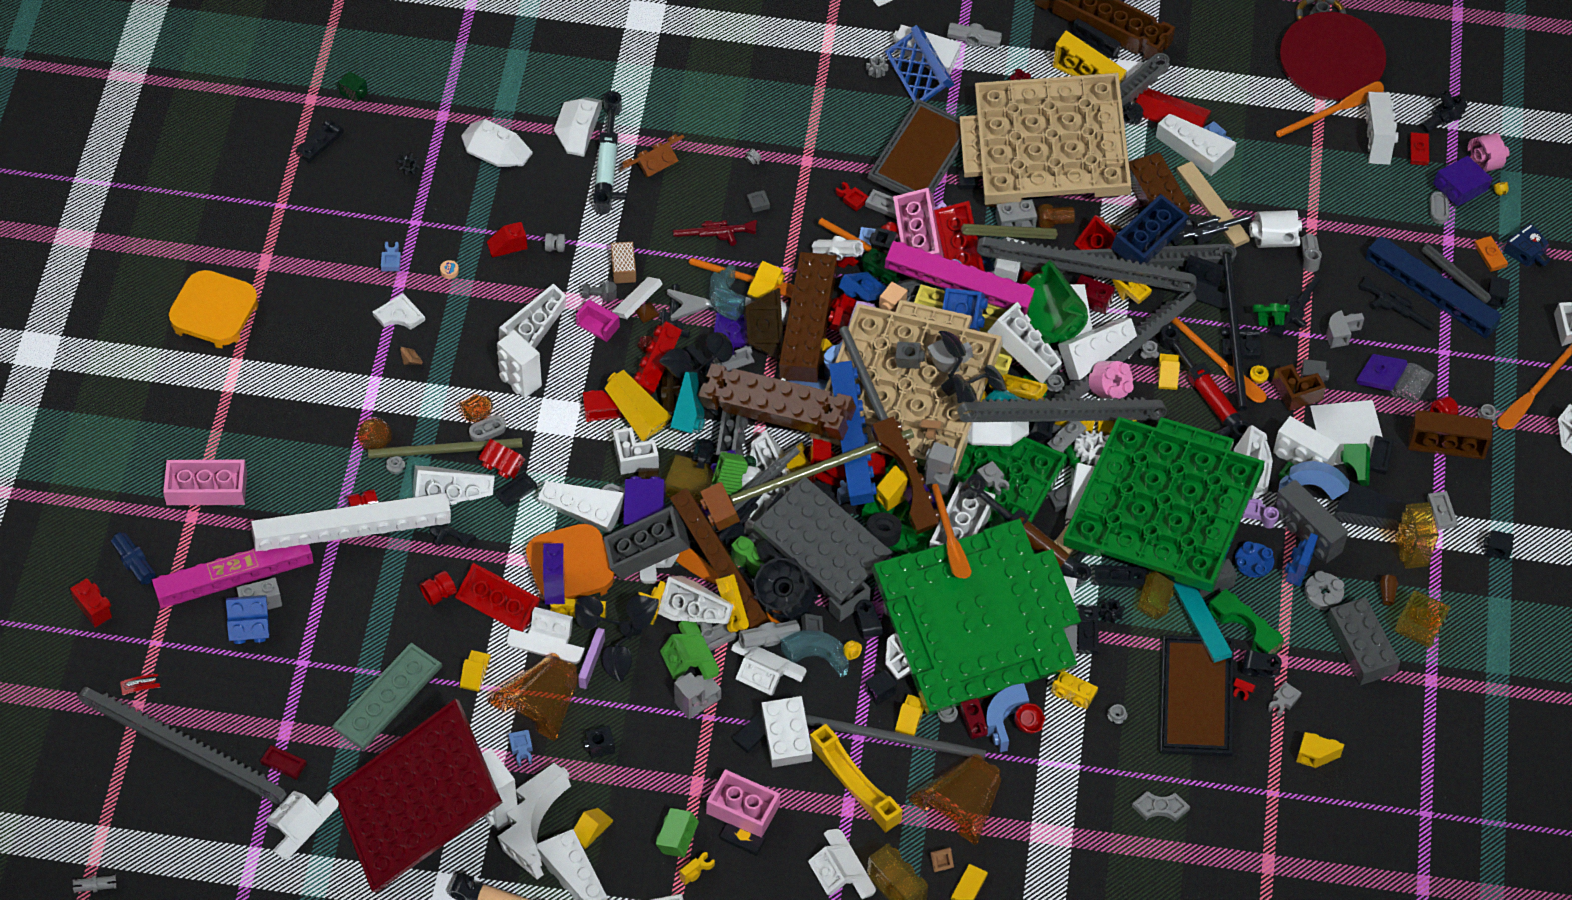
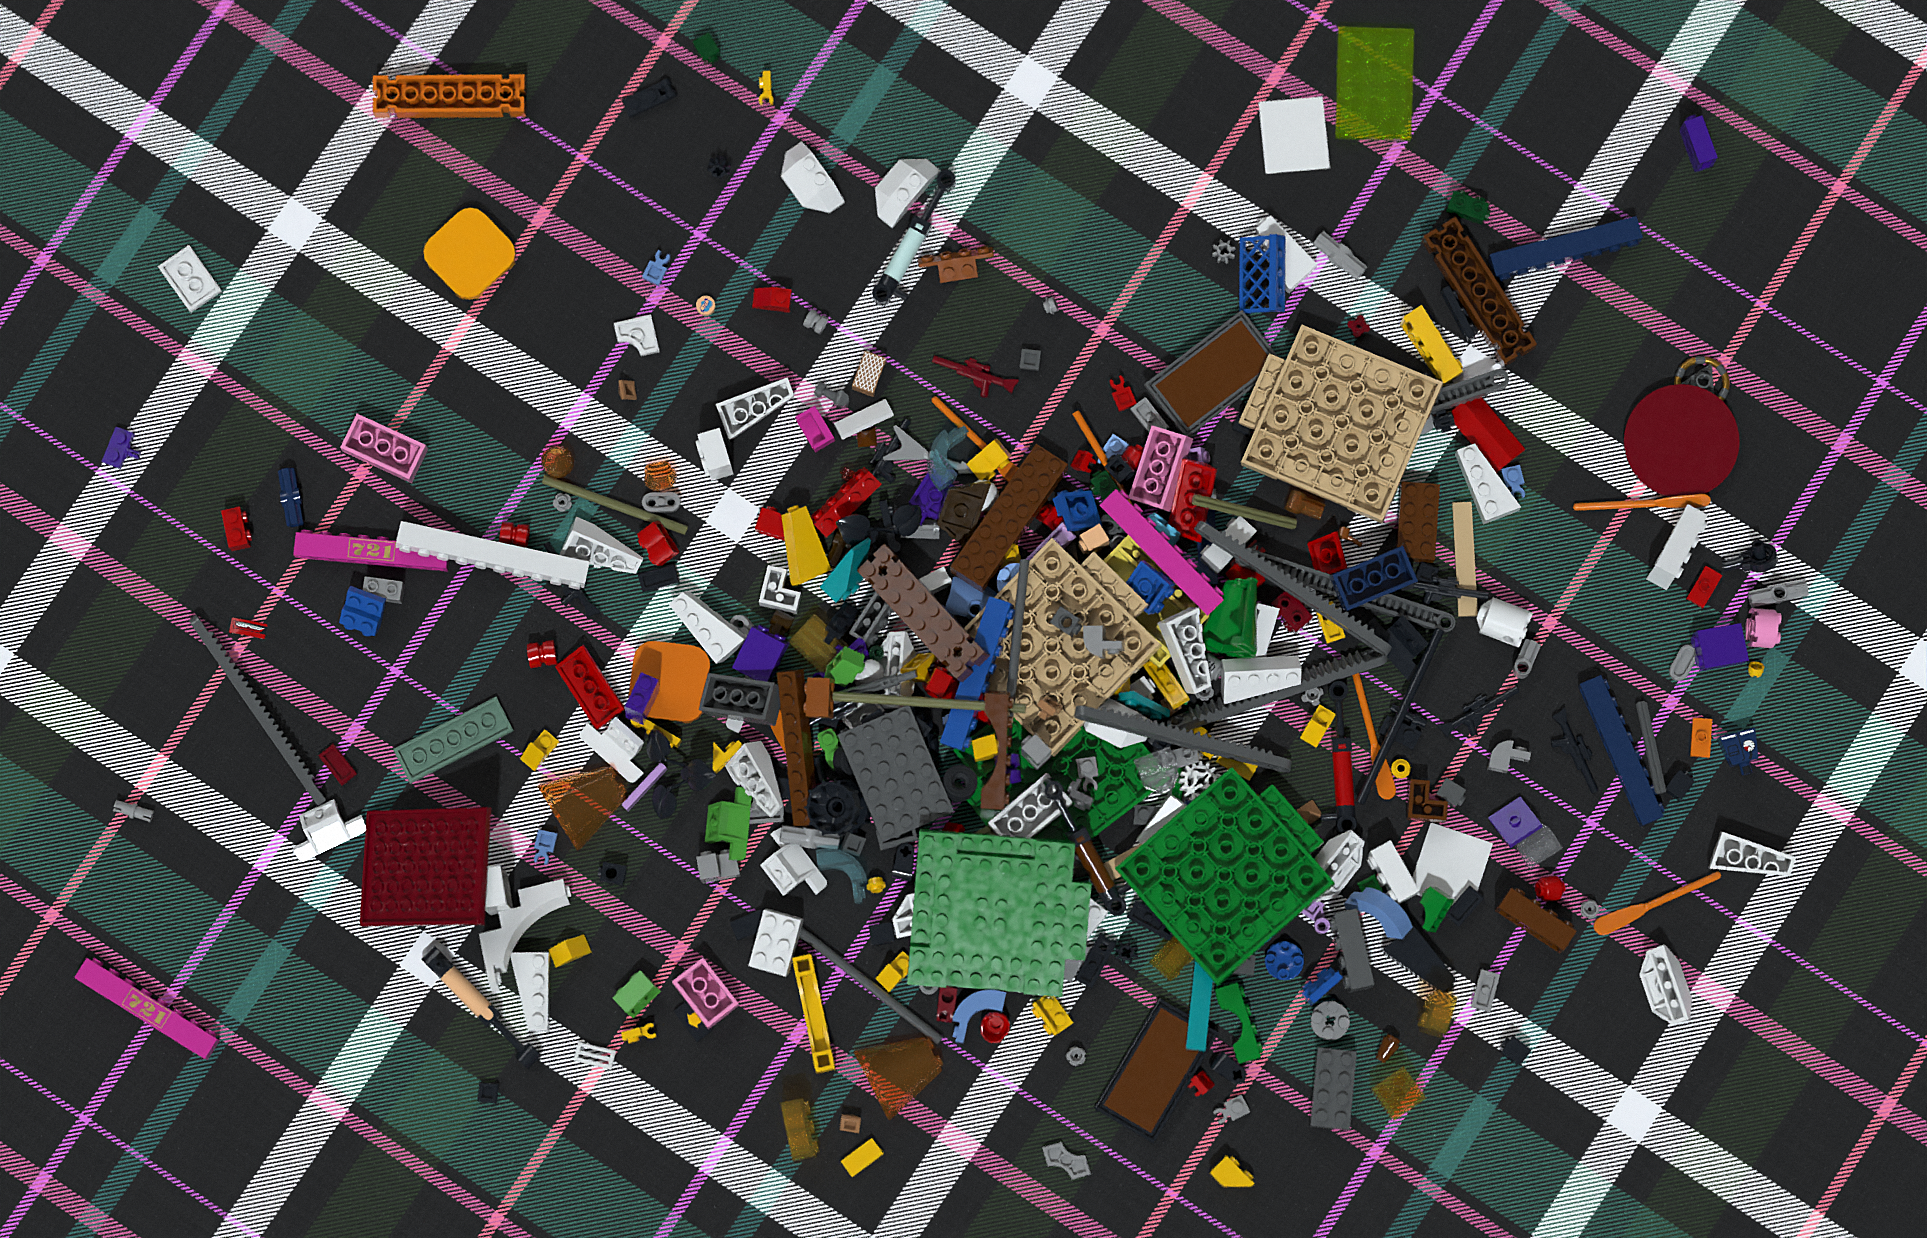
camera: 30 degrees right, 25 degrees up
(137, 198) = (449, 96): none -> orange brick
(418, 92) = (765, 83): none -> yellow plate
(729, 591) = (788, 794): yellow plate -> none
(838, 246) = (1073, 455): white piece -> none
(838, 319) = (1036, 532): red bracket -> none
(839, 865) = (762, 1089): white plate -> none
(956, 382) = (1087, 696): black plant -> none
(956, 556) = (996, 859): orange piece -> none
(1001, 488) = (1080, 800): none -> flat silver bracket
(1016, 214) = (1266, 489): light grey brick -> none
(1054, 449) = (1158, 770): none -> clear slope
(1111, 379) = (1252, 718): bright pink brick -> none
(1275, 309) = (1448, 710): green plate -> none
(1482, 126) = (1766, 595): none -> light grey piece

